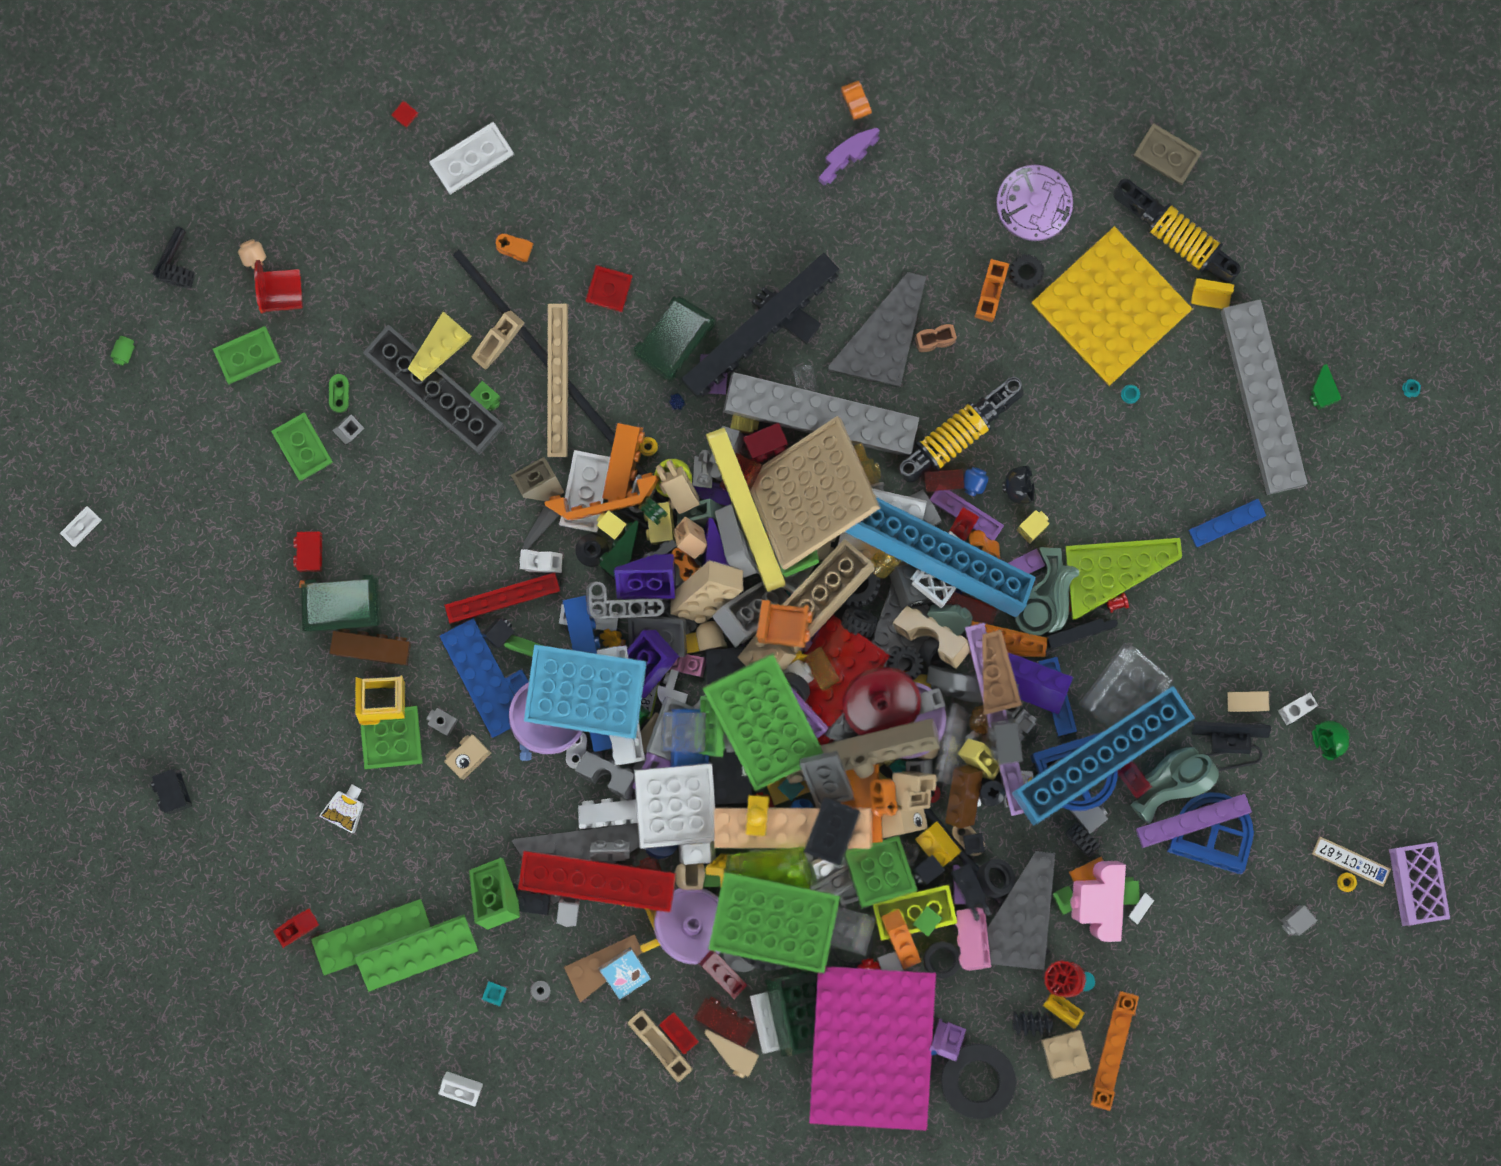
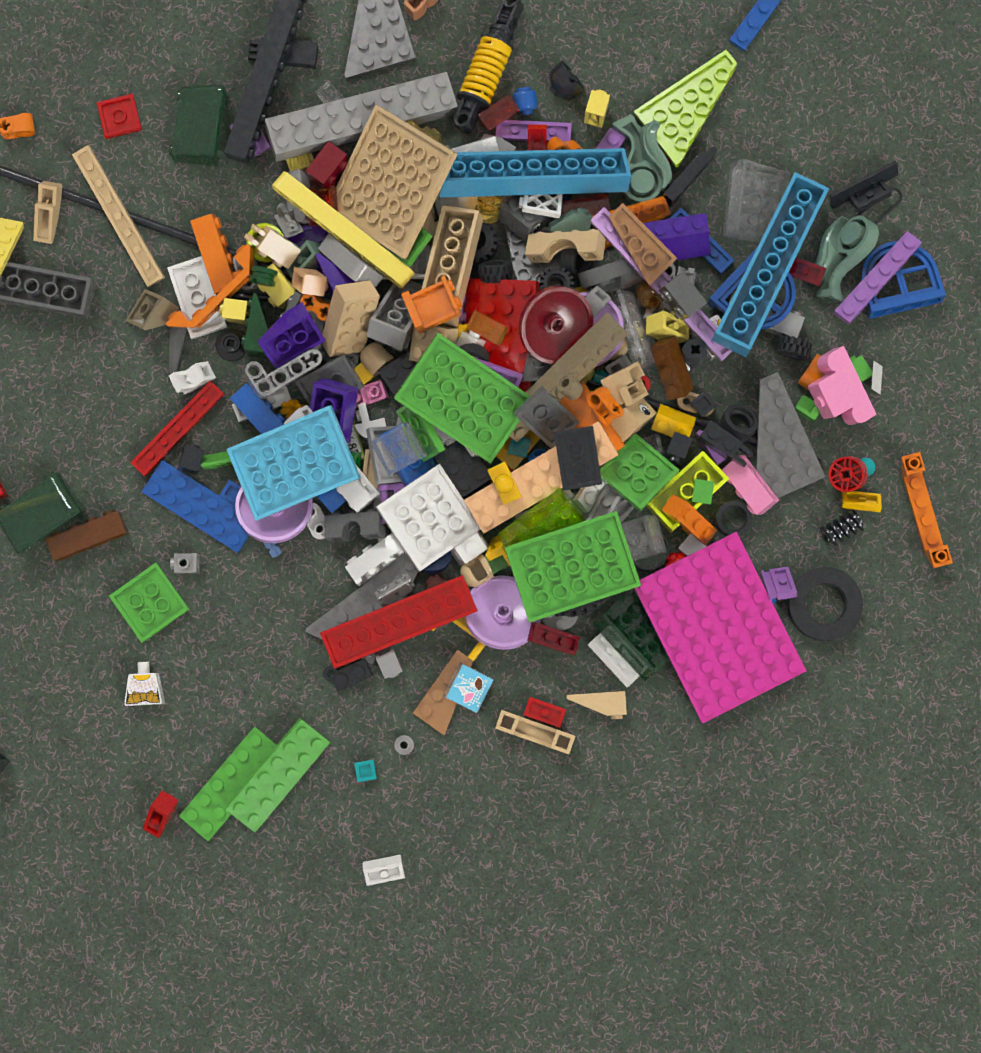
camera: 25 degrees left, 0 degrees up
(374, 715) = (123, 590): yellow piece -> none
(467, 756) = (224, 579): tan brick -> none
(486, 396) = (65, 264): bright green brick -> none
(493, 895) = (315, 686): bright green slope -> none
(648, 440) = (229, 223): yellow plate -> none
(677, 401) = (232, 178): clear blue plate -> none
(725, 1021) = (579, 678): clear red brick -> none
(1065, 1054) = (885, 538): tan brick -> none
(1117, 602) = (705, 133): red bush -> none
(1248, 701) = (864, 152): tan slope -> none
(1297, 708) = (908, 136): white leg -> none
(1332, 739) = (952, 143): green cylinder -> none

